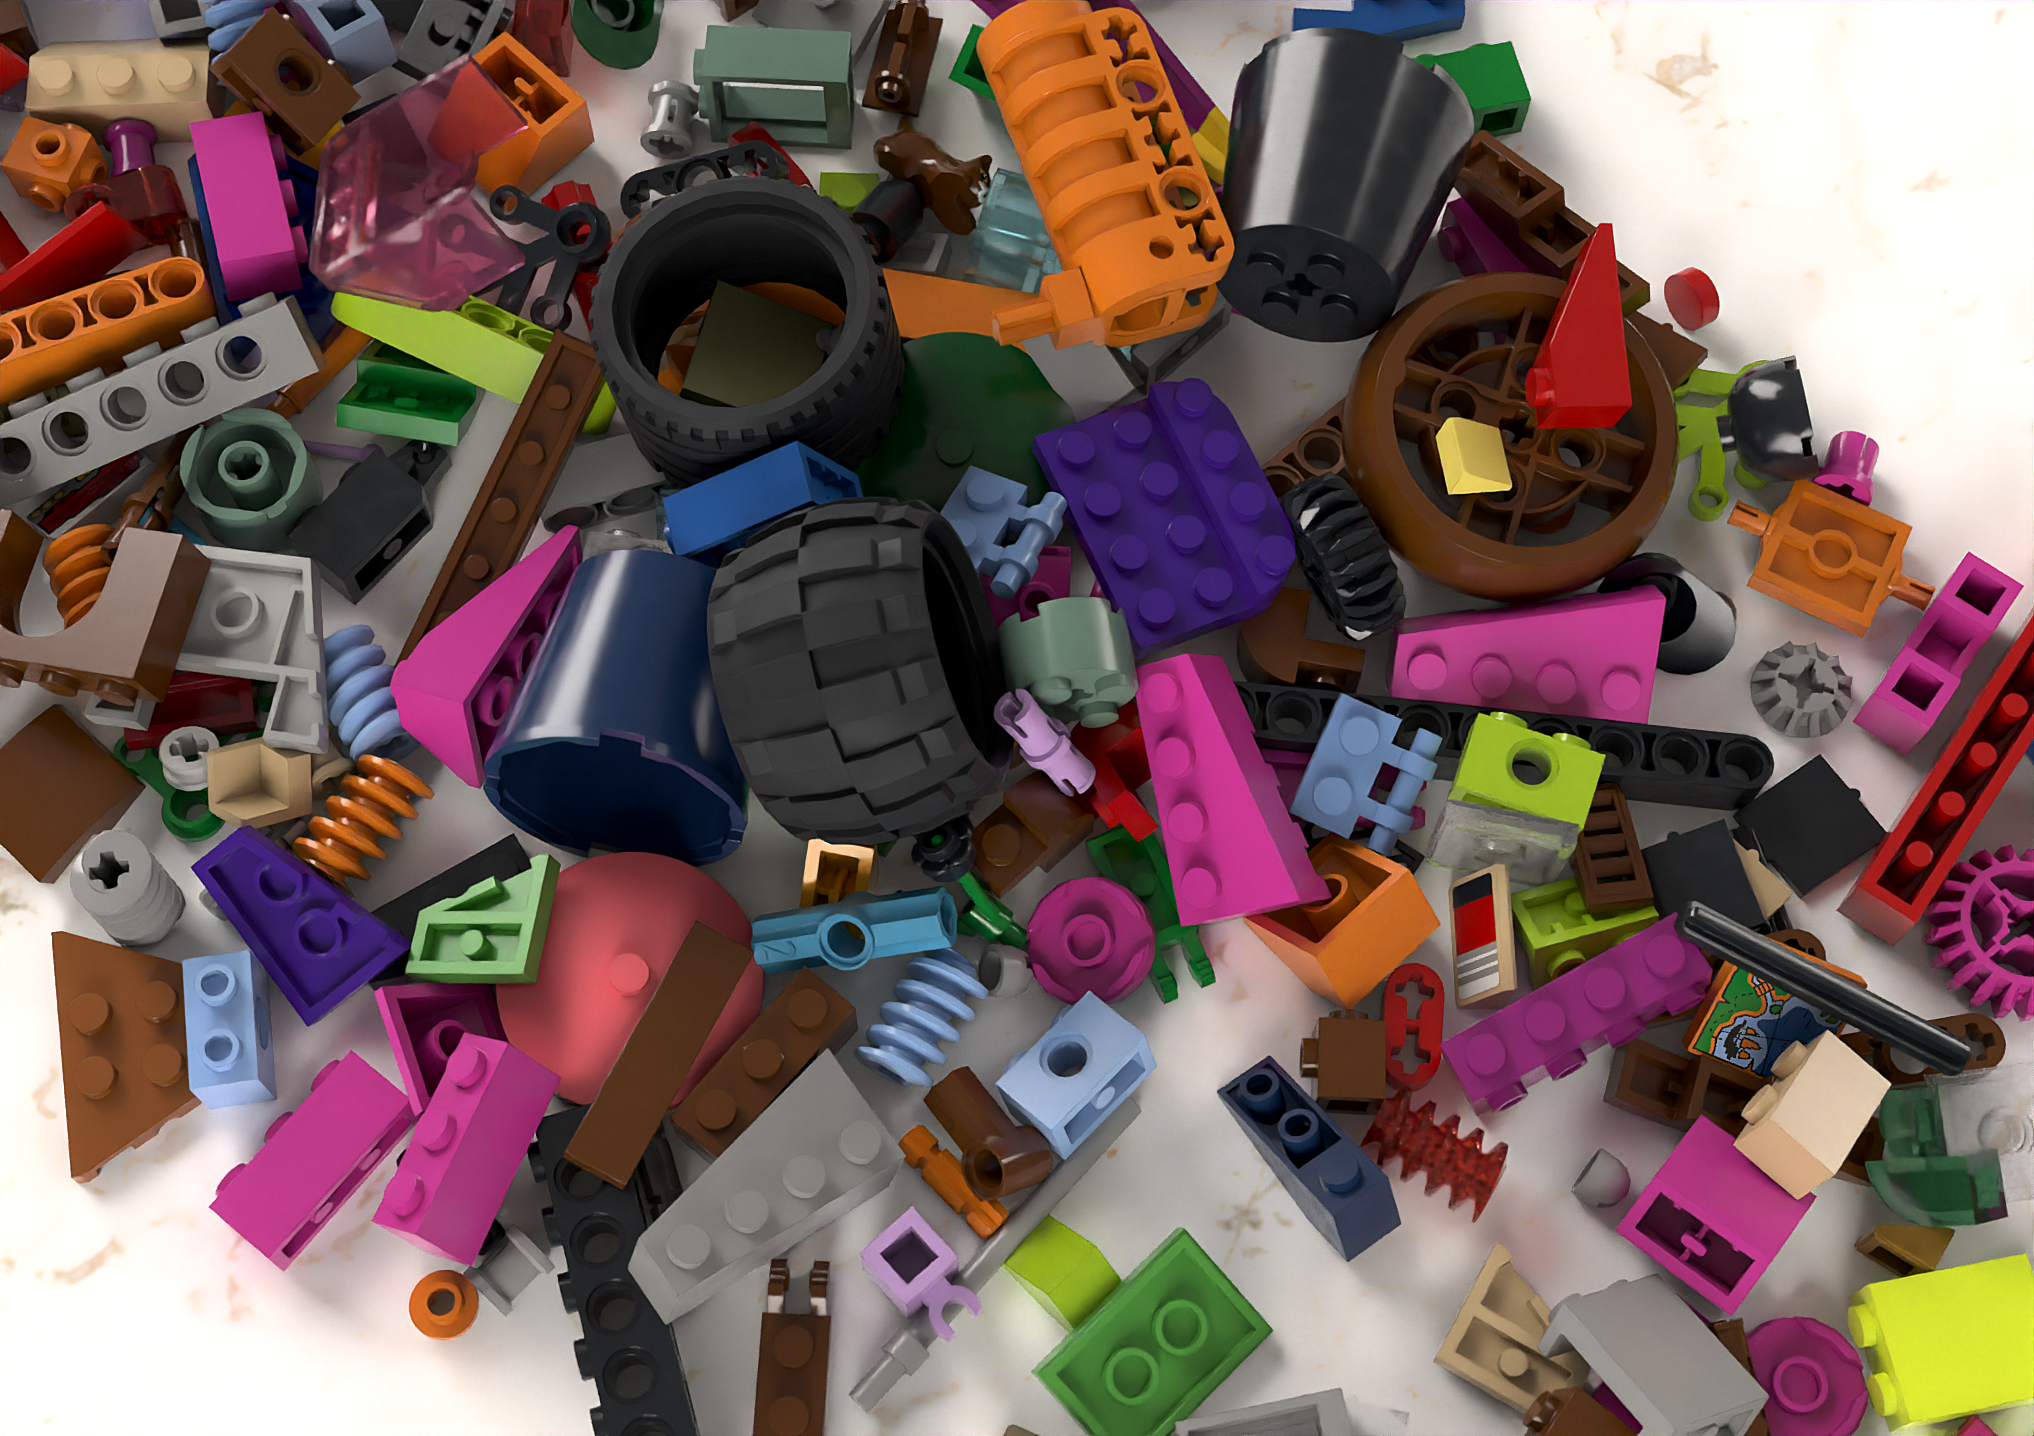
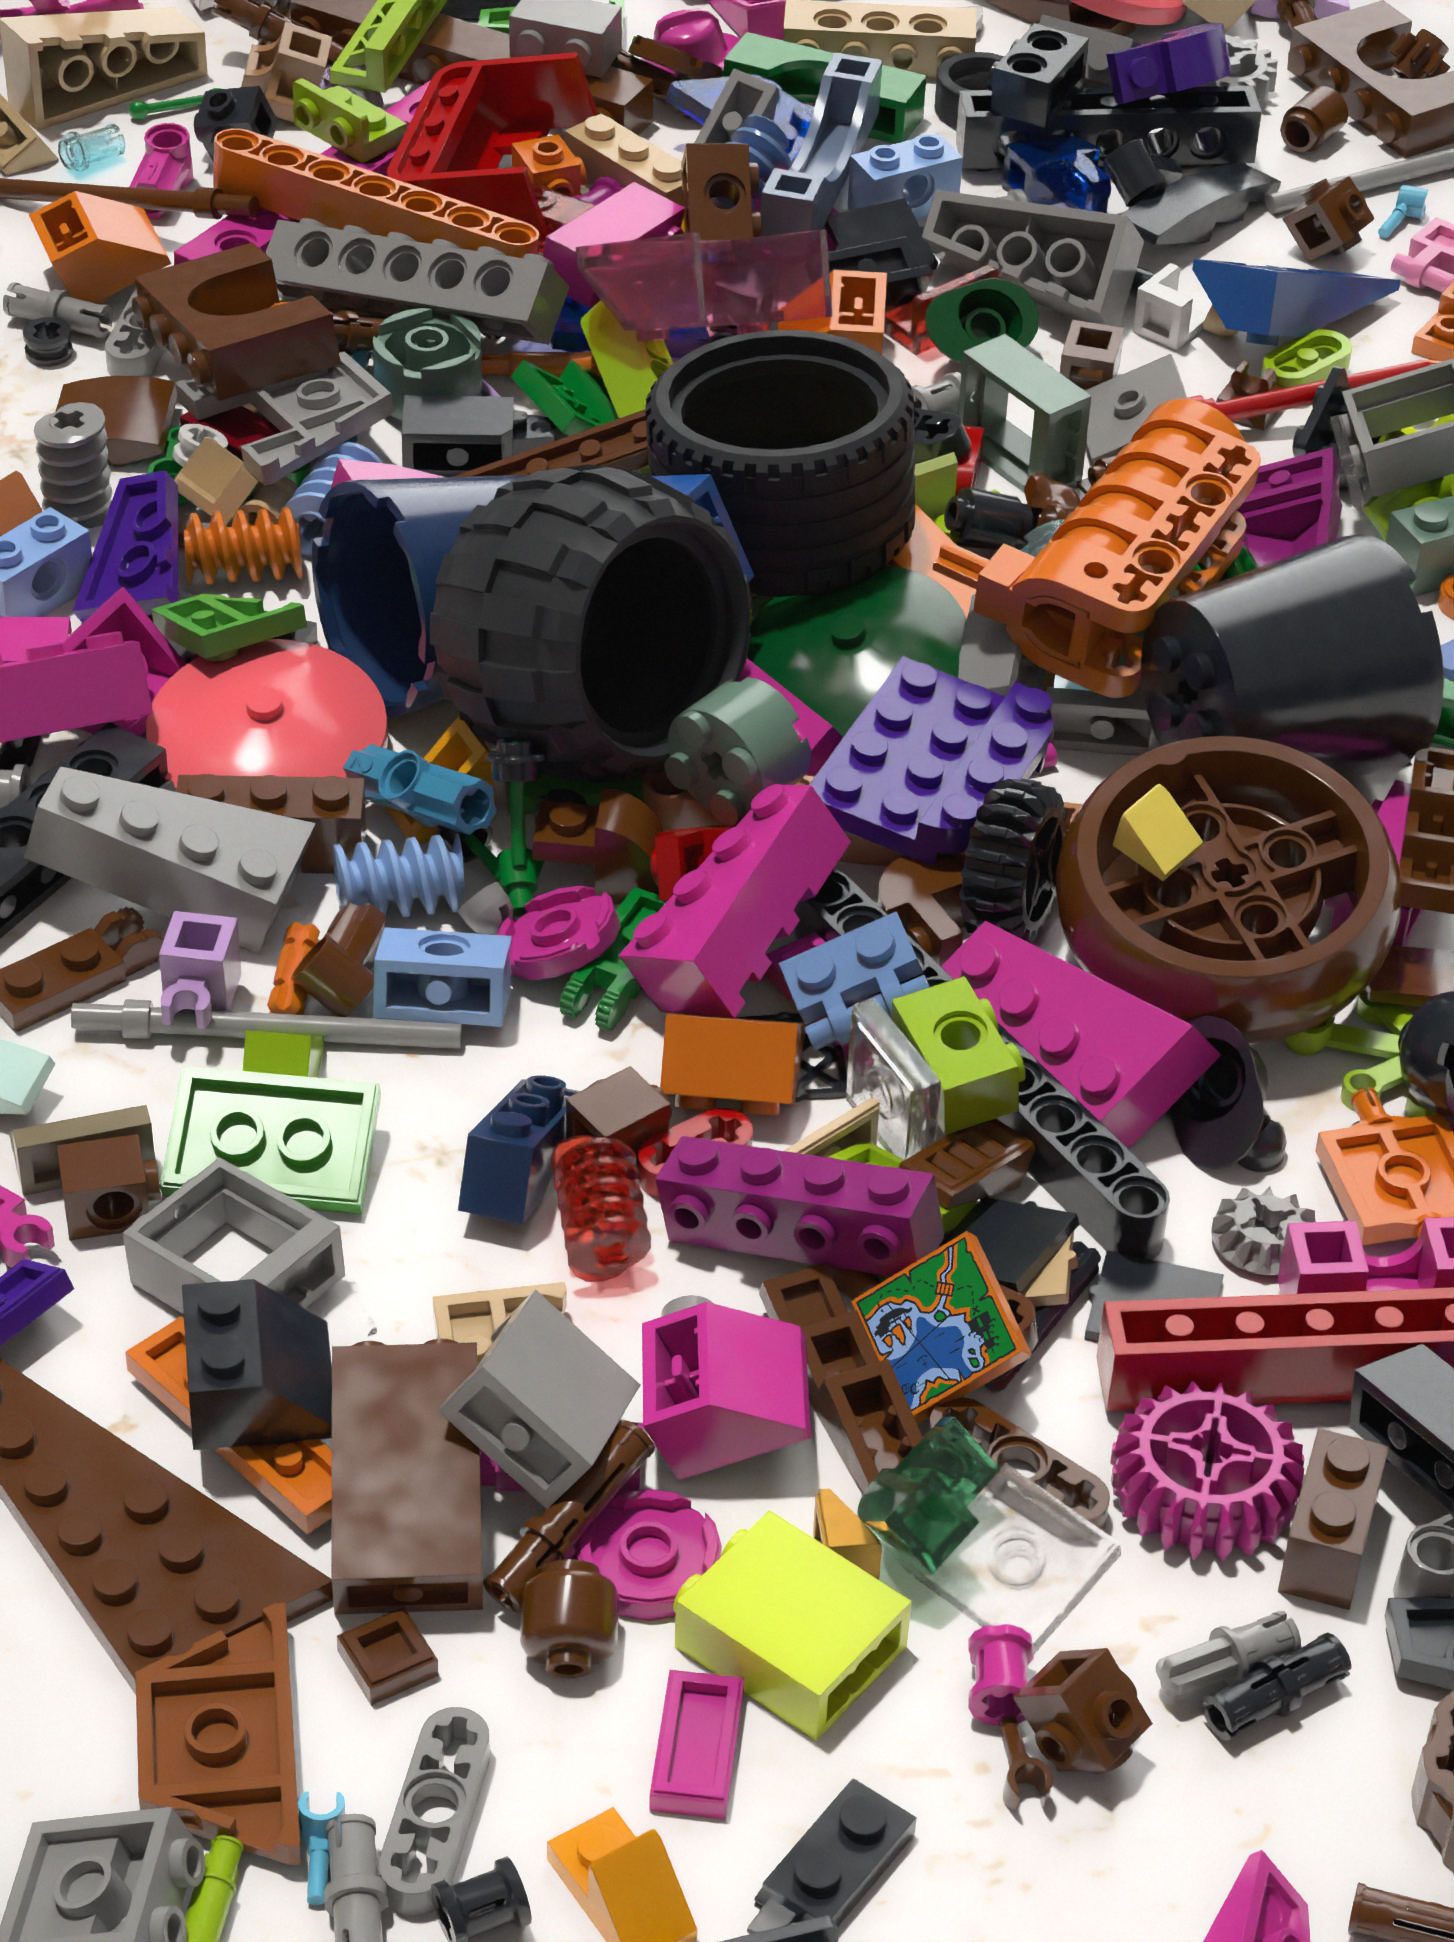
camera: 50 degrees right, 25 degrees down
(658, 1055) = (221, 745): reddish brown tile -> none
(987, 510) = (806, 669): medium blue plate -> none
(1044, 742) = (660, 769): lavender pin -> none
(1583, 362) = (1322, 825): red slope -> none
(1810, 1113) = (868, 1372): tan brick -> none
(1822, 988) = (981, 1316): black axle -> none

